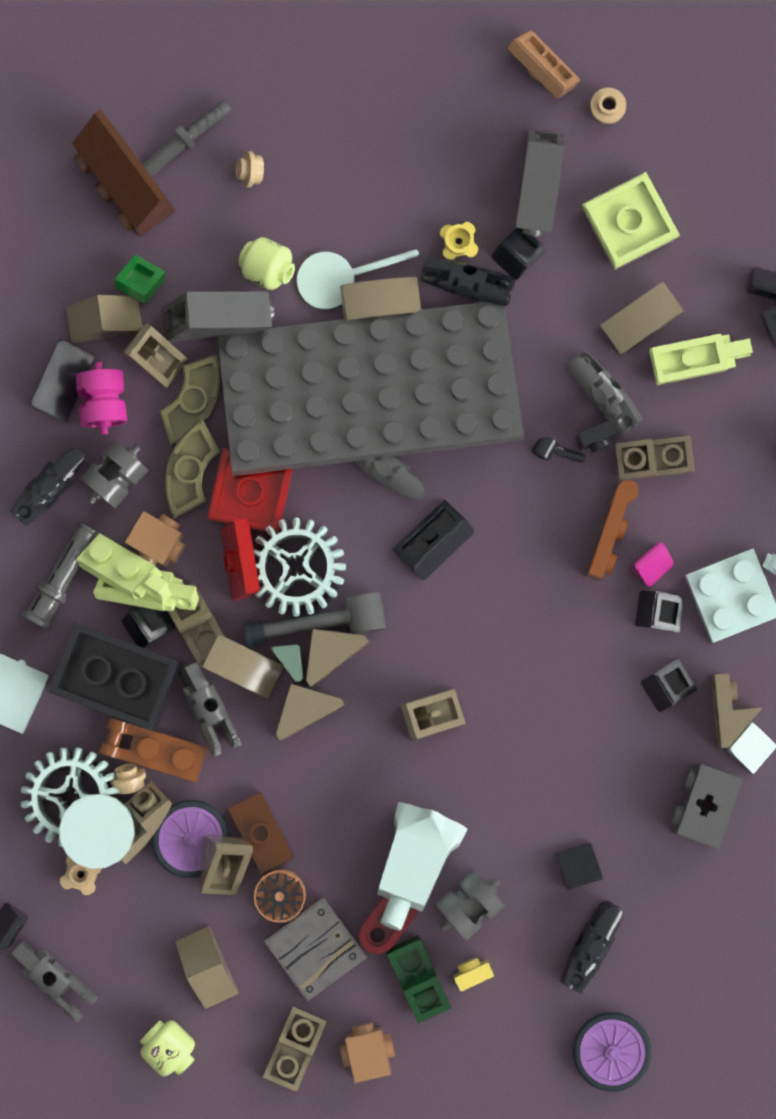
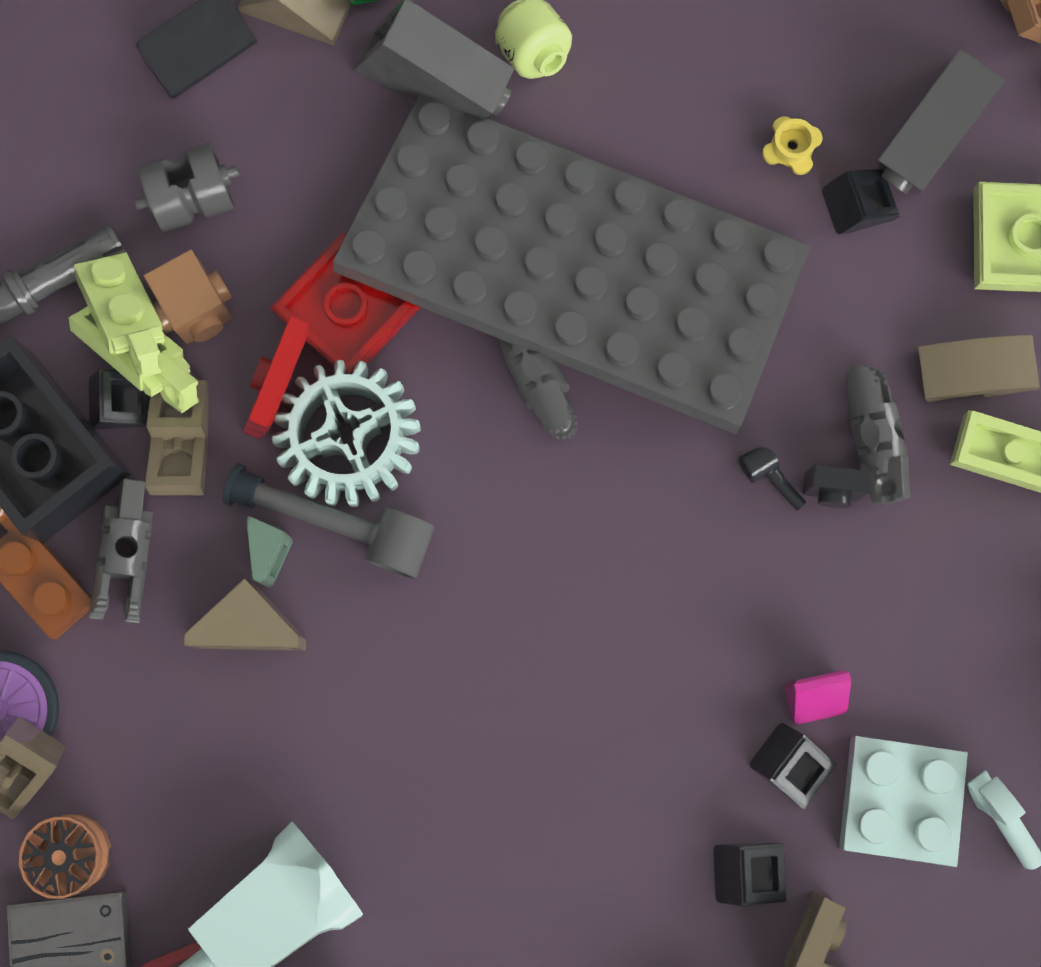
camera: 30 degrees right, 5 degrees down
(45, 489) = (99, 158): black hinge -> none
(101, 394) = (232, 79): dark pink wheel -> none
(155, 355) = (326, 68): dark tan slope -> none
(186, 469) = (283, 233): olive tile -> none
(196, 398) = (343, 160): olive tile -> none
(242, 666) = (200, 521): dark tan slope -> none
(262, 831) = (94, 756): reddish brown plate -> none
(325, 272) = (601, 104): light aqua piece -> none
(330, 651) = (321, 568): dark tan slope -> none
(380, 298) = (652, 158): dark tan slope -> none
(432, 714) = (408, 729): dark tan slope -> none
(434, 540) = (546, 501): black slope -> none
(468, 280) = (777, 197): black hinge -> none
(612, 529) = (791, 618): dark orange plate -> none
(655, 458) = (897, 558): dark tan slope -> none

